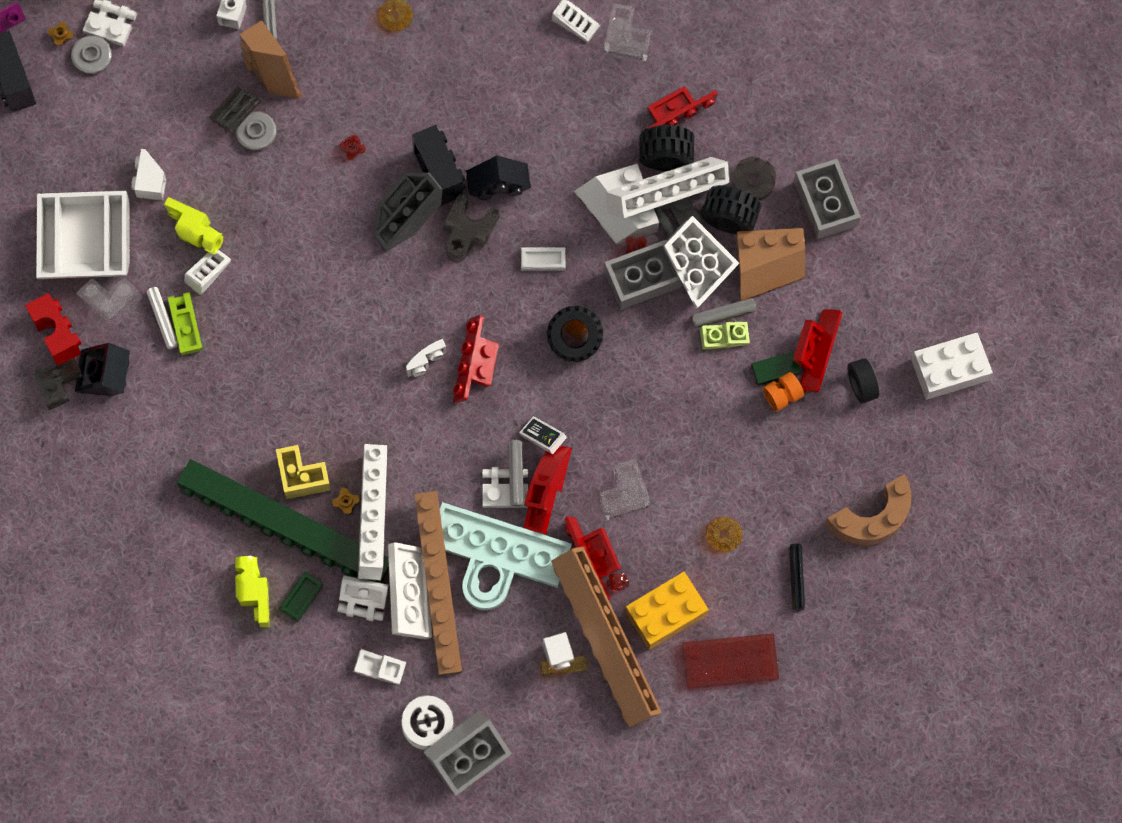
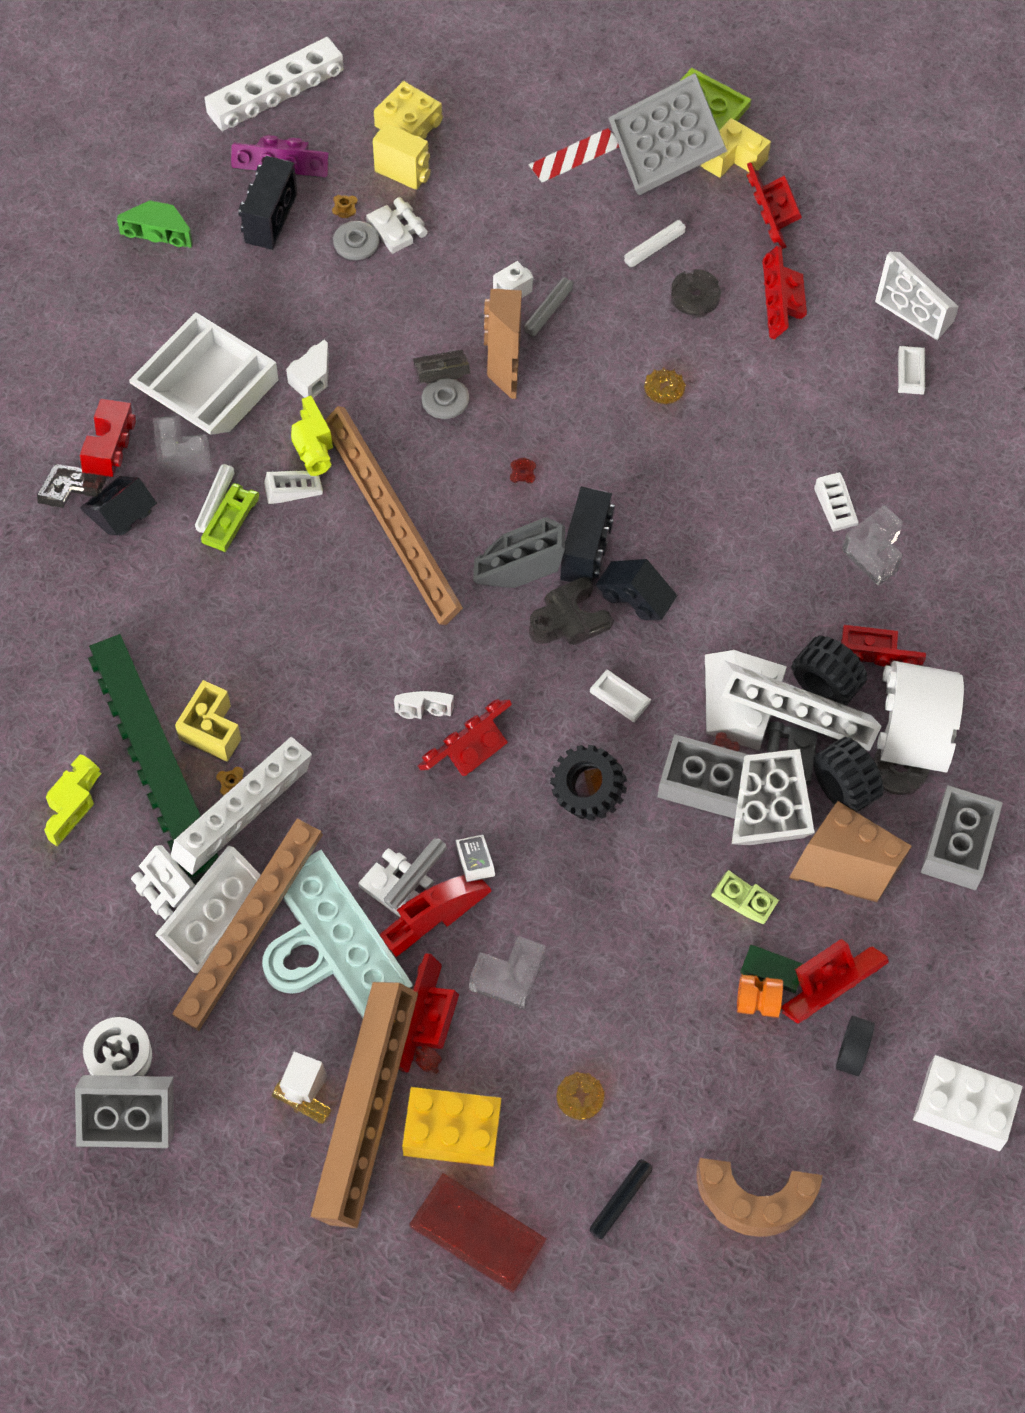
camera: 40 degrees right, 10 degrees down
(293, 242) = (393, 517): none -> medium nougat plate
(301, 596) = (111, 839): dark green tile -> none
(379, 667) = (122, 962): white slope -> none
(723, 312) = (762, 874): light grey axle -> none
(745, 132) = (923, 715): none -> white cylinder

